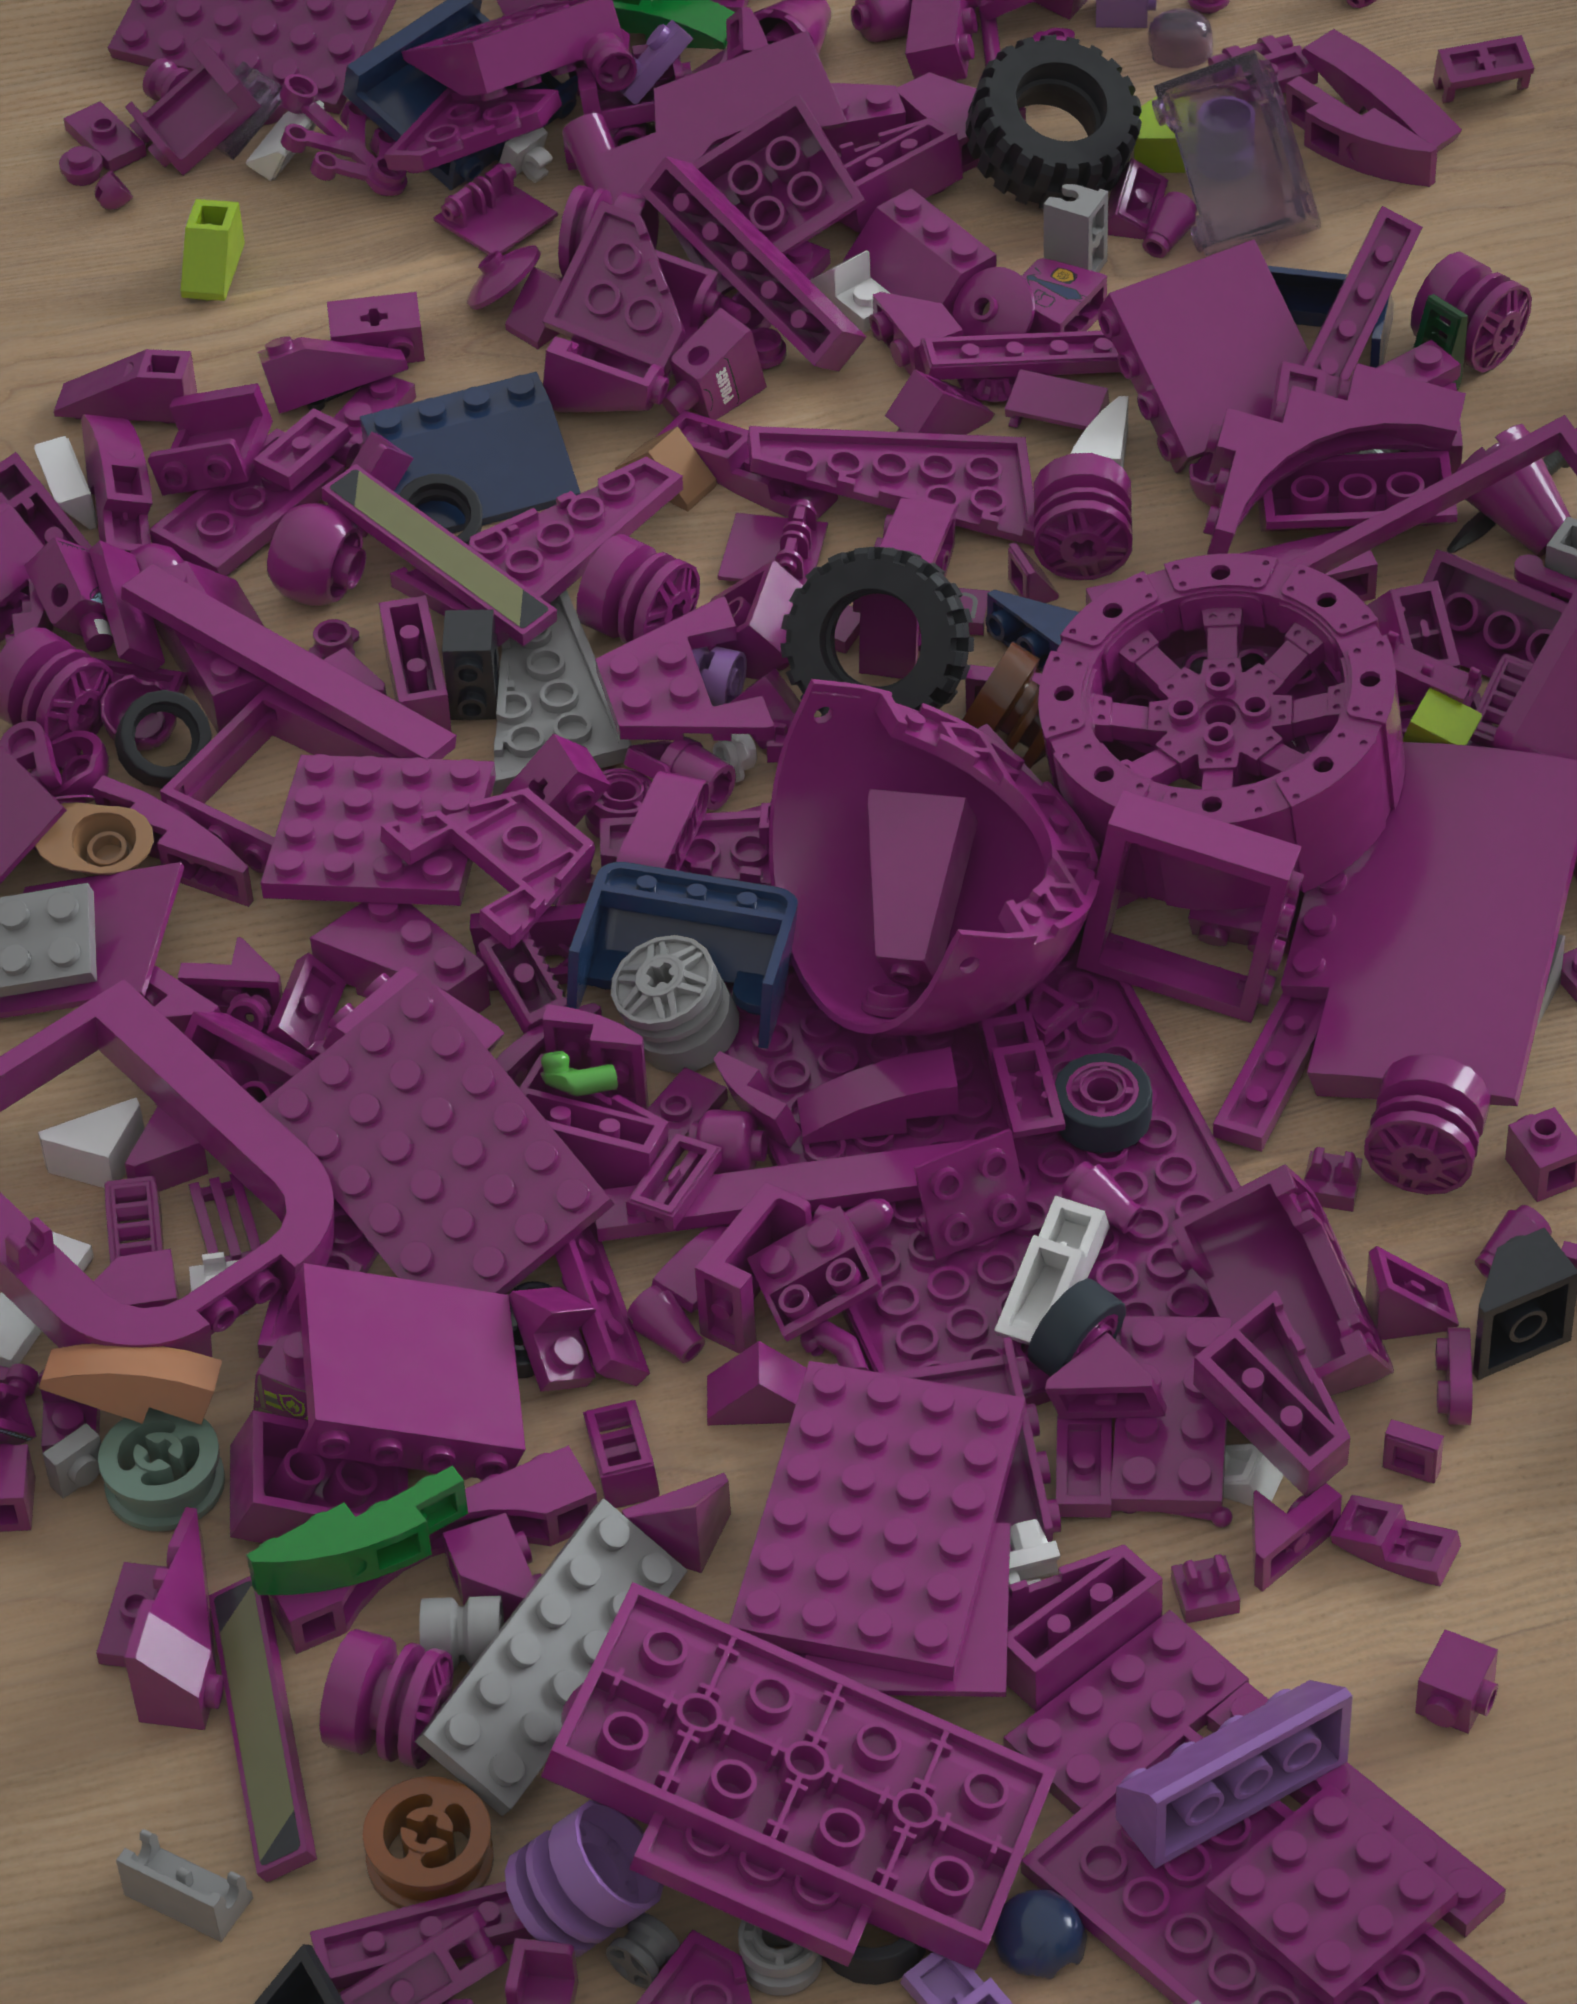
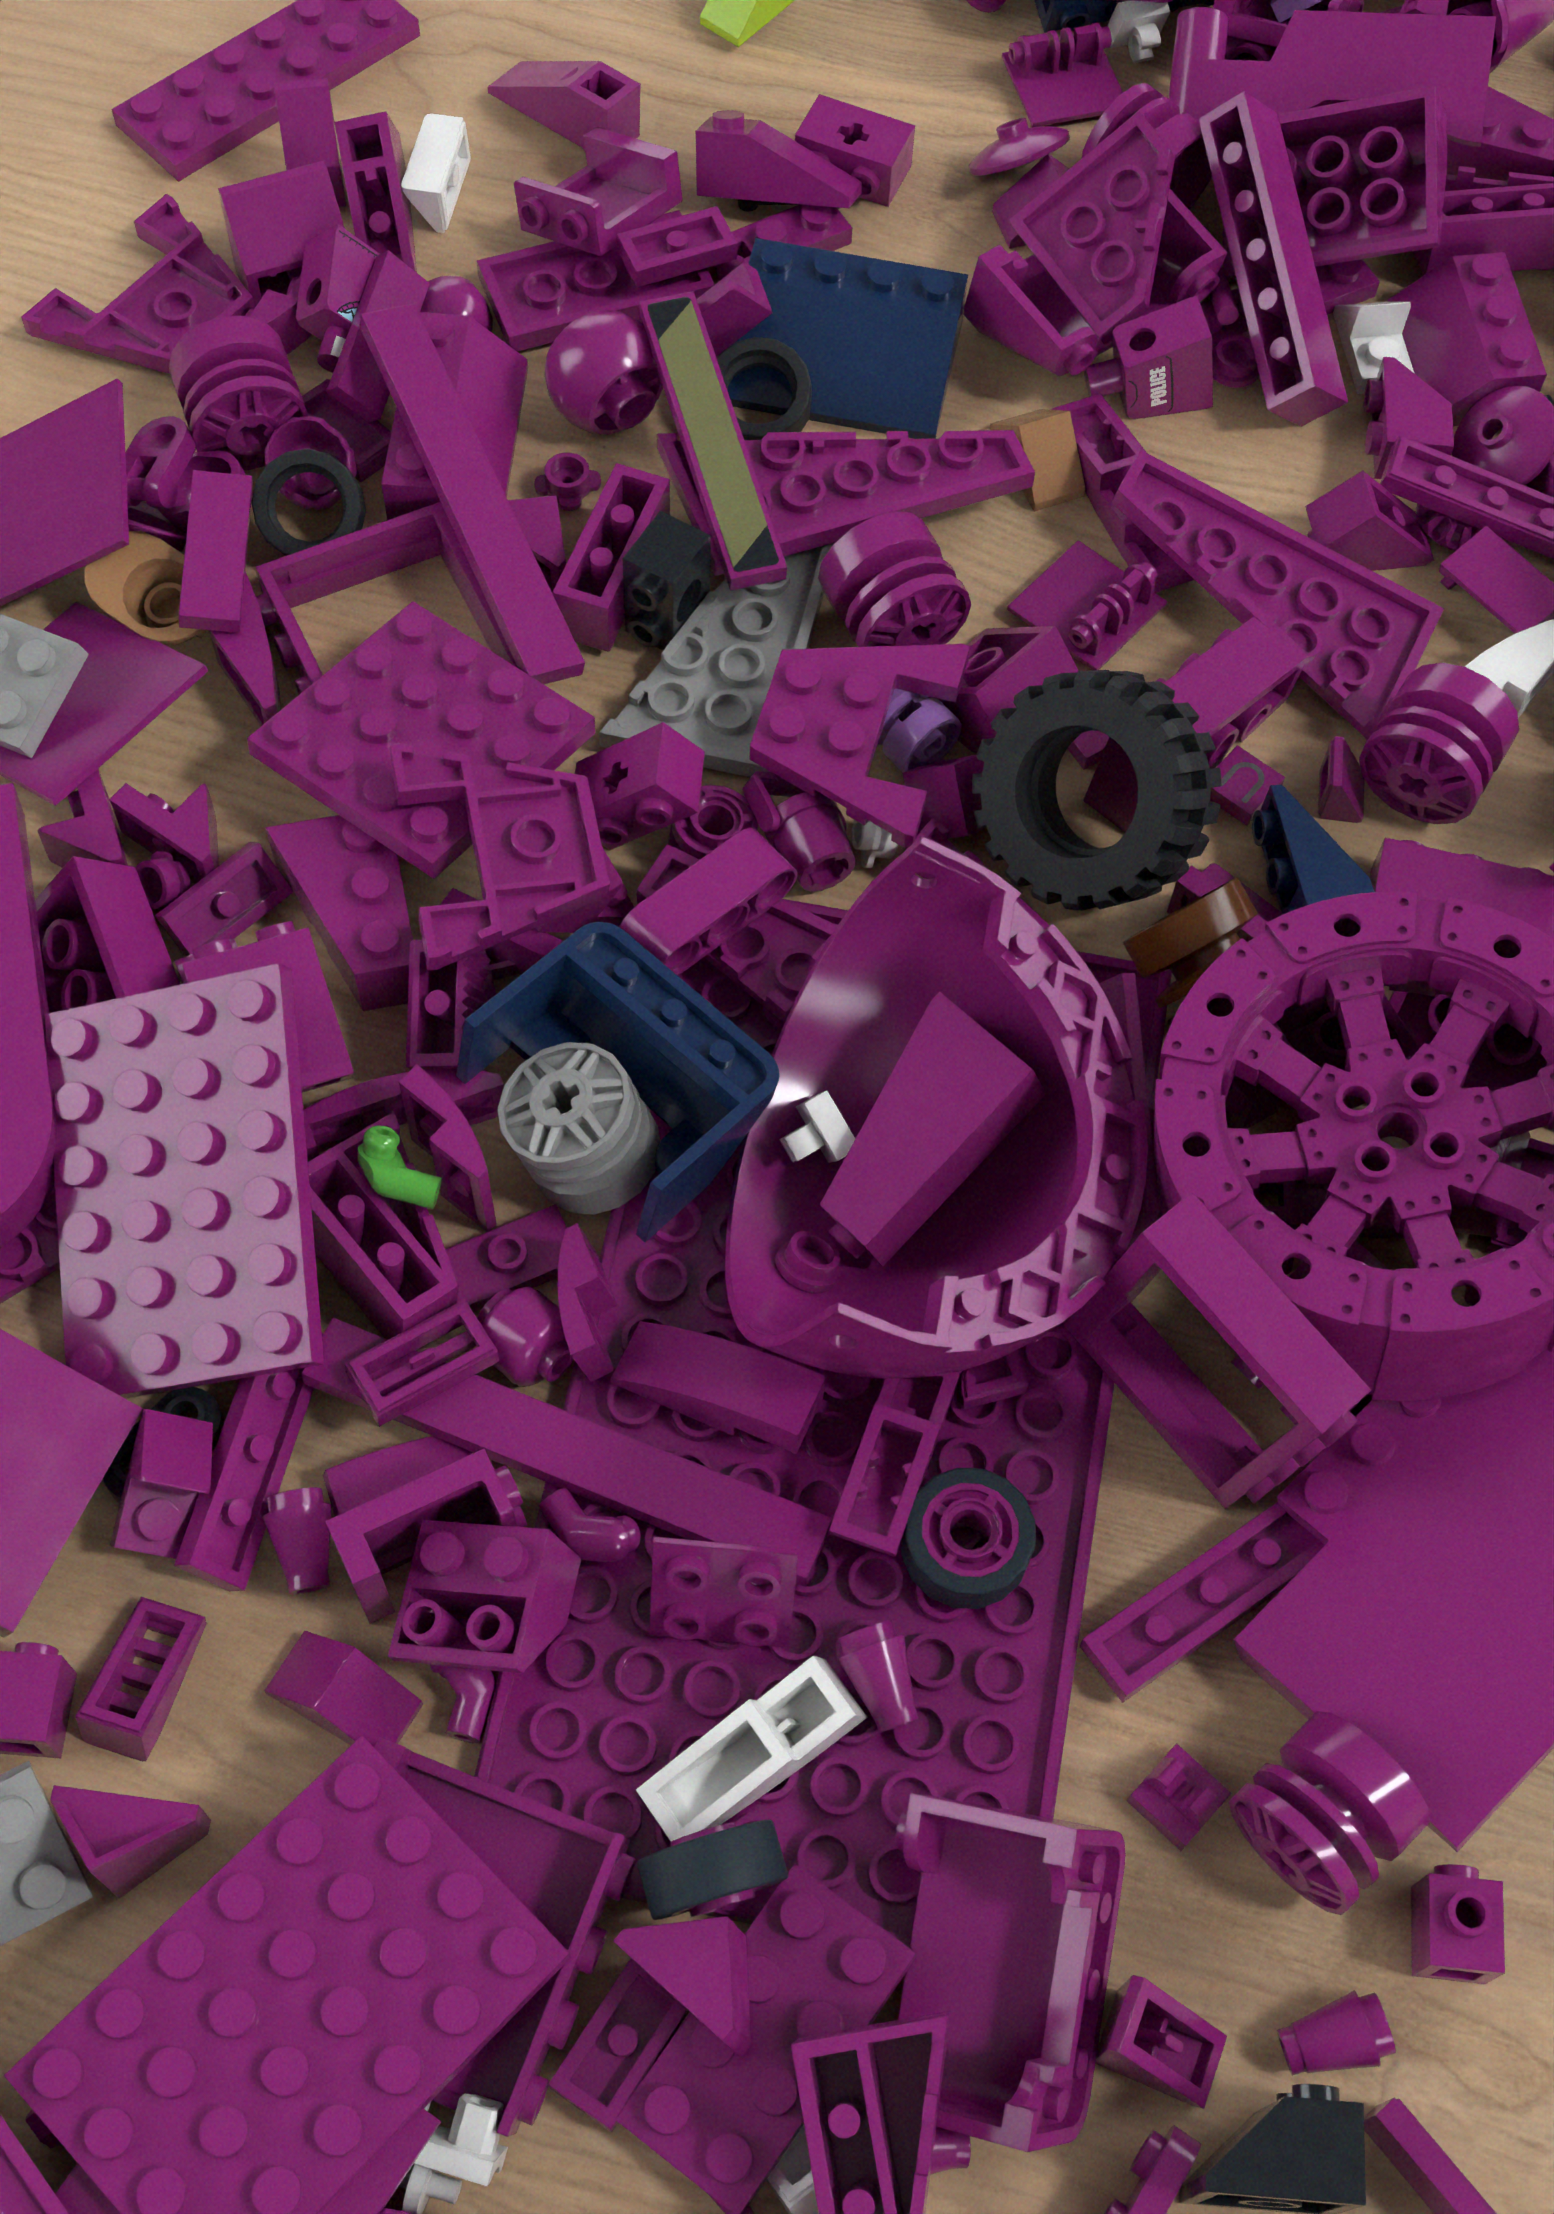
camera: 25 degrees right, 15 degrees up
(118, 480) = (479, 195): magenta slope -> none
(129, 789) = (215, 551): none -> magenta tile
(842, 921) = (822, 1129): none -> white tile

